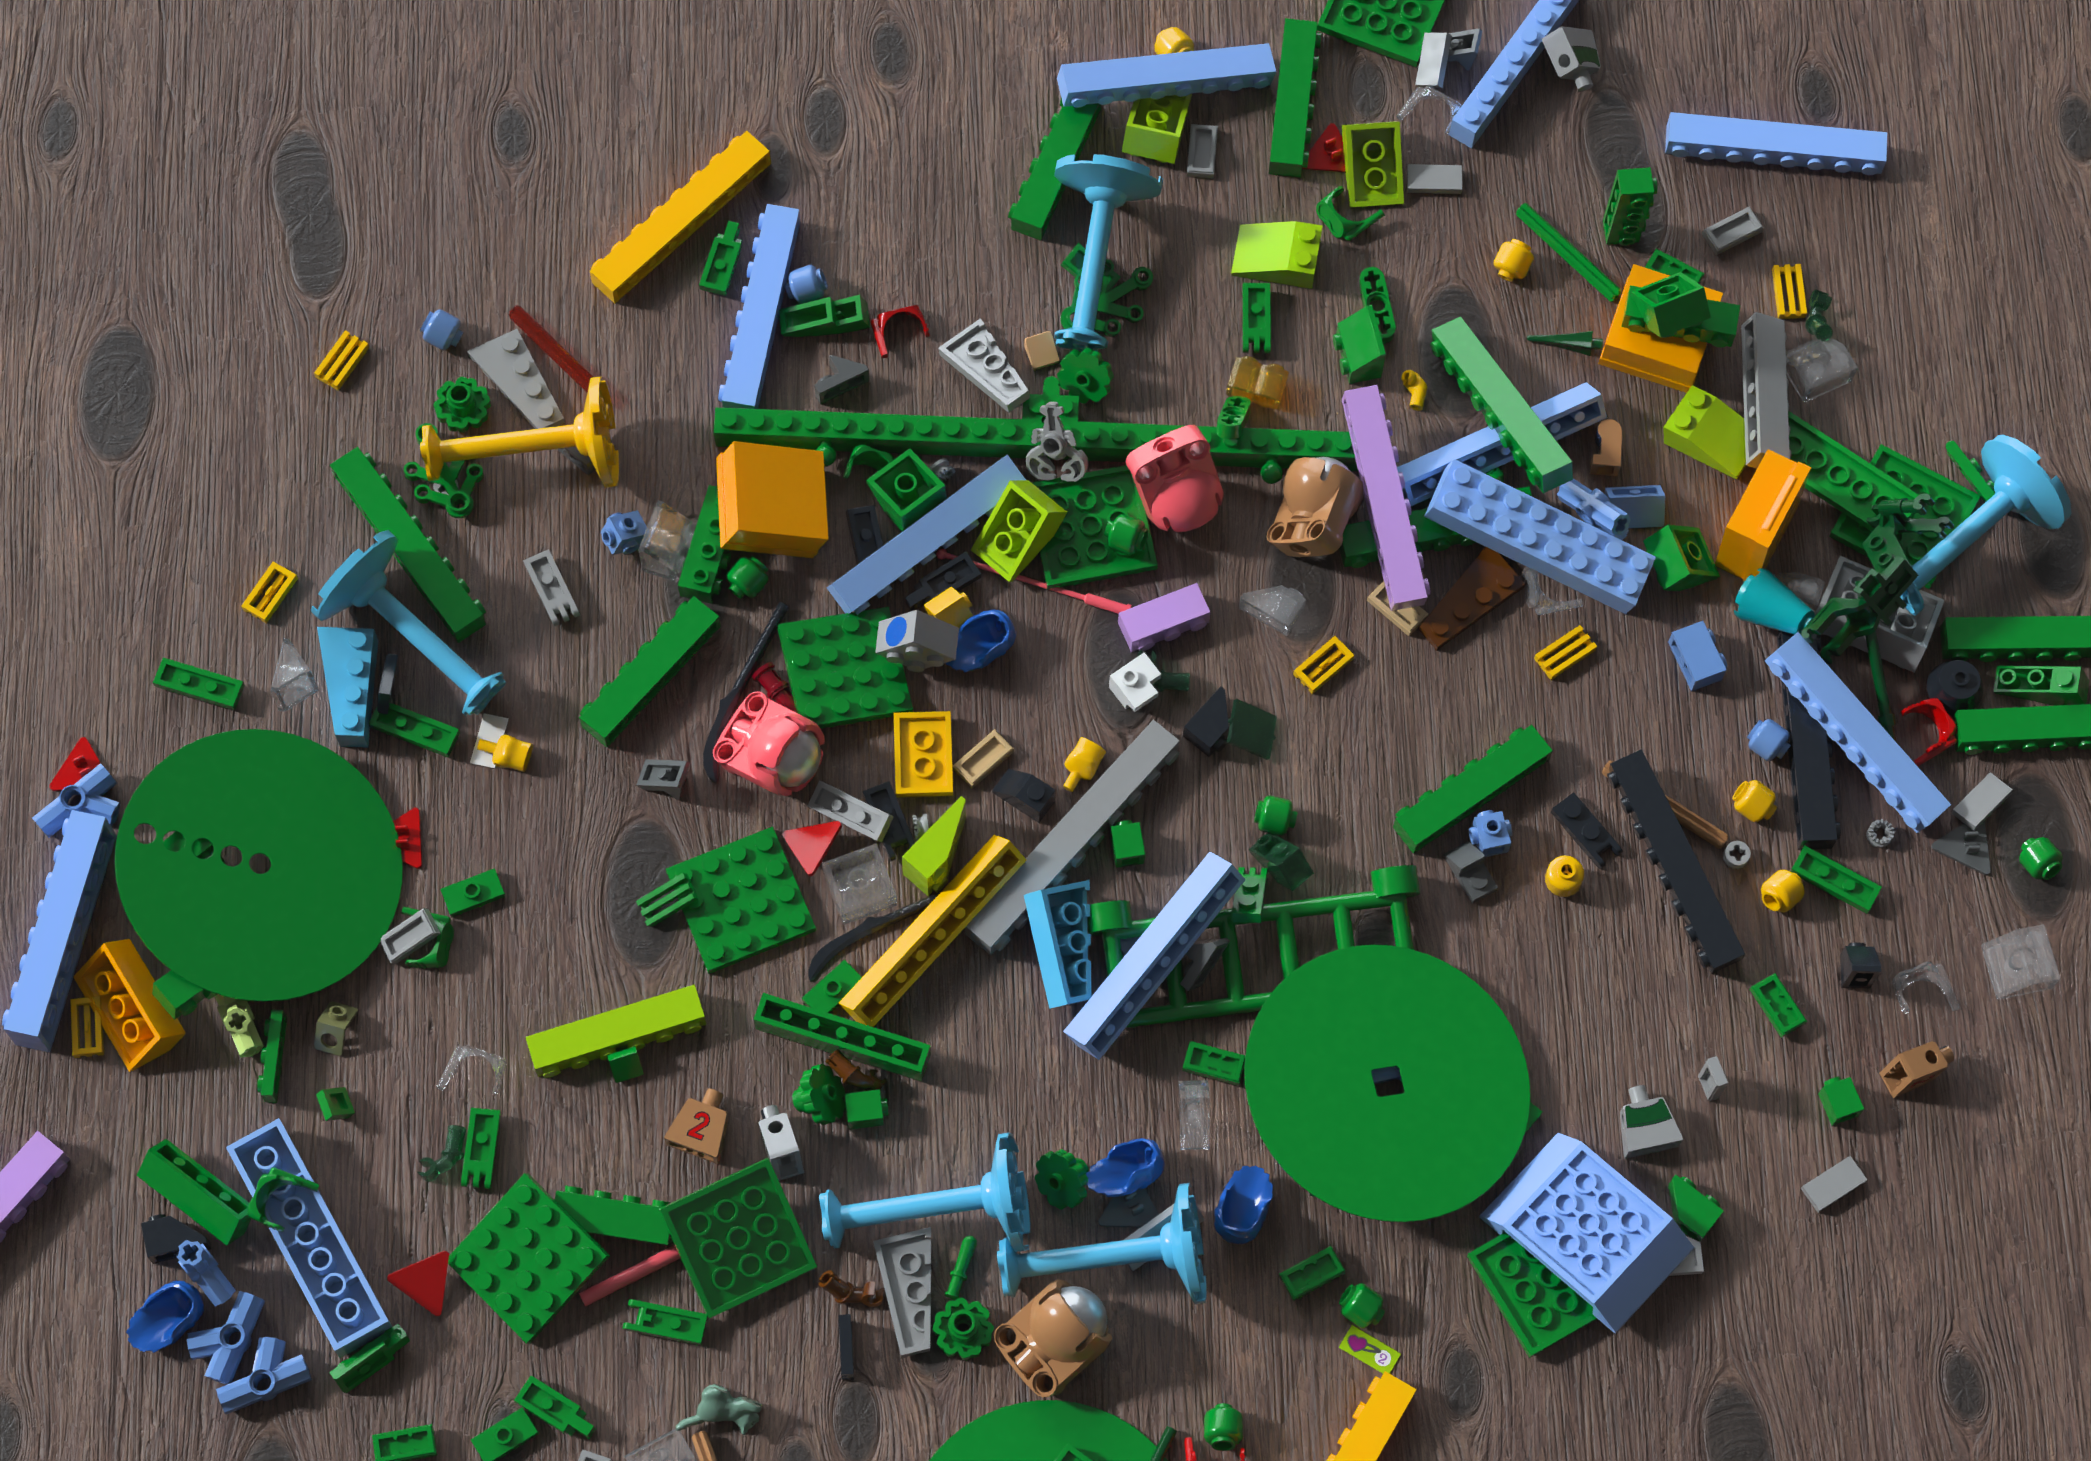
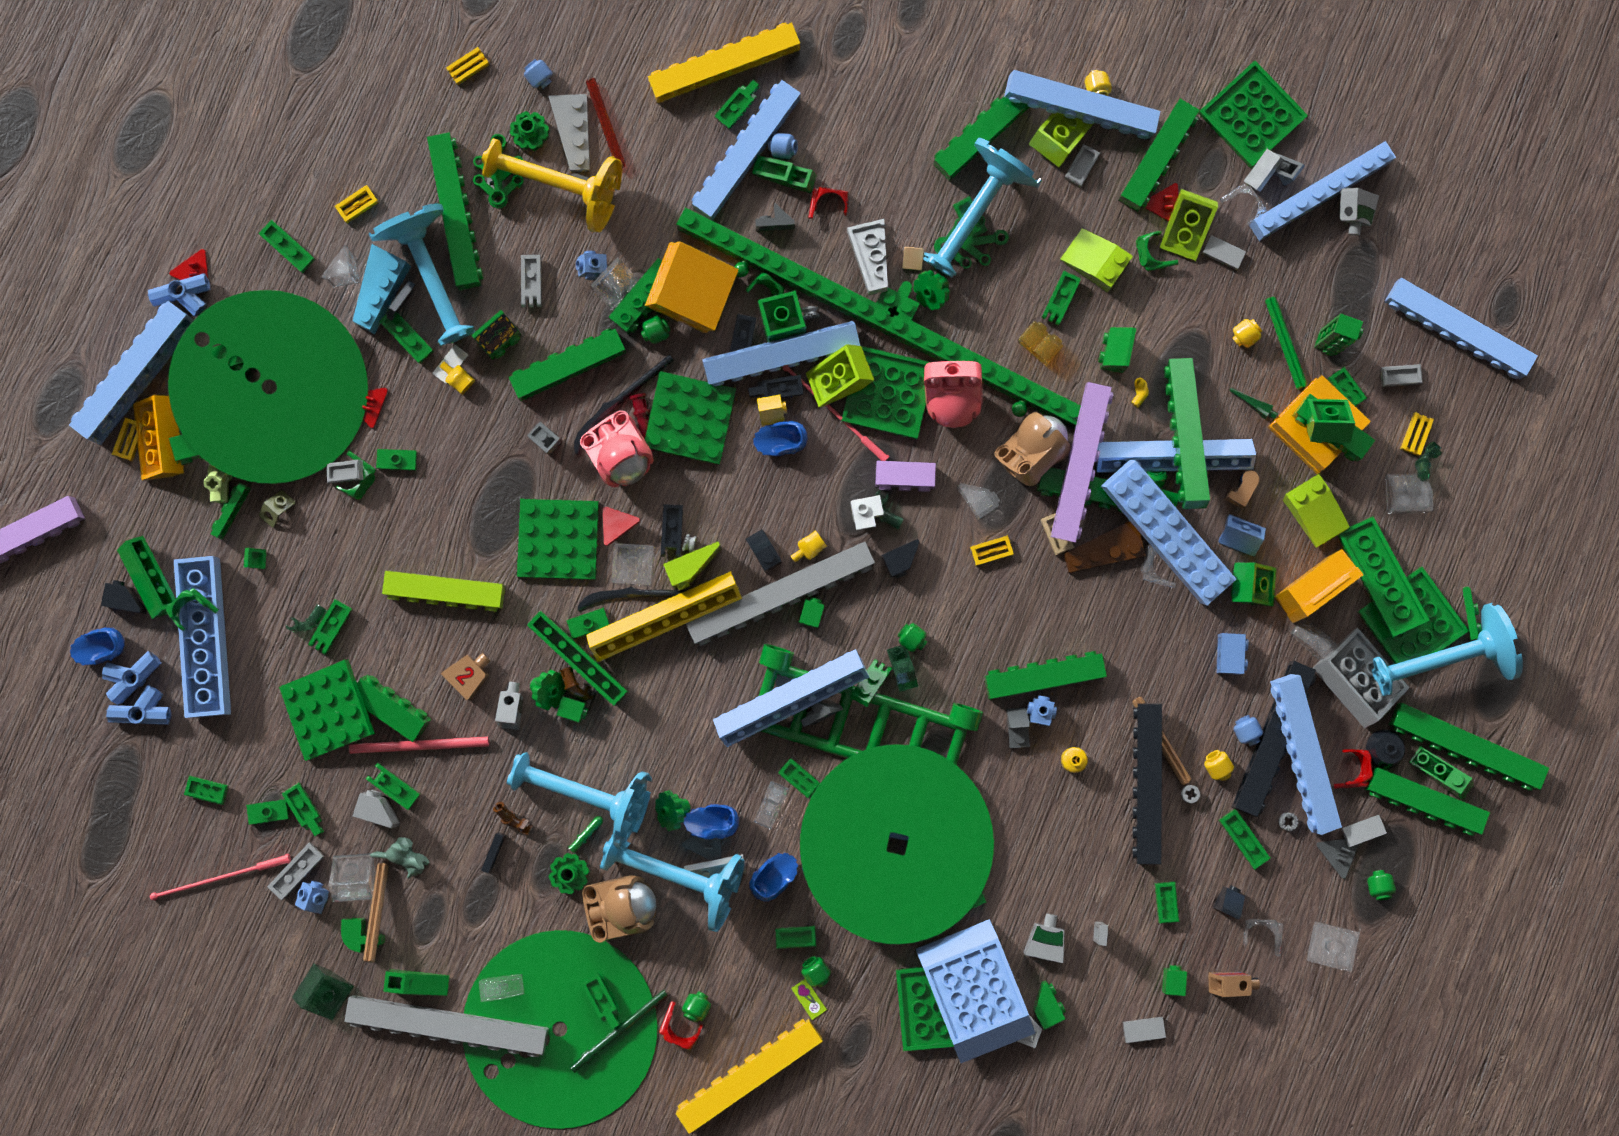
camera: 25 degrees right, 15 degrees up
(203, 1269) = (130, 631): medium blue piece -> none
(369, 1359) = (208, 728): green hinge -> none
(424, 1281) = (260, 695): red piece -> none
(460, 1053) = (363, 574): clear helmet -> none
(538, 672) = (497, 335): none -> slope
(625, 1064) = (439, 614): green tile -> none
(657, 1358) = (376, 809): none -> light grey slope
(662, 890) = (498, 520): green tile -> none
(738, 1237) = (456, 757): green plate -> none
(850, 811) = (649, 514): light grey plate -> none
(907, 1283) = (549, 826): light grey wing -> none
(917, 640) = (739, 424): light grey brick -> none
(923, 754) = (712, 496): yellow plate -> none
(983, 758) = (749, 515): tan tile -> none
(1056, 445) = (888, 332): light grey animal -> none
(1062, 941) = (740, 660): medium azure wedge -> none
(1126, 534) = (905, 411): green head -> none
(1233, 417) = (1011, 368): green beam -> none
(1251, 729) = (924, 574): clear green piece -> none
(1381, 294) = (1152, 311): green beam -> none
(1583, 639) = (1165, 609): yellow tile -> none
(1585, 829) = (1103, 733): black hinge -> none
(1595, 508) = (1214, 530): medium blue piece -> none
(1765, 388) = (1364, 499): light grey brick -> none
(1771, 604) = (1295, 648): teal cone -> none
(1782, 891) = (1206, 831): yellow head -> none
(1880, 587) = (1383, 658): dark green piece -> none
(1886, 718) = (1330, 749): dark green bar -> none

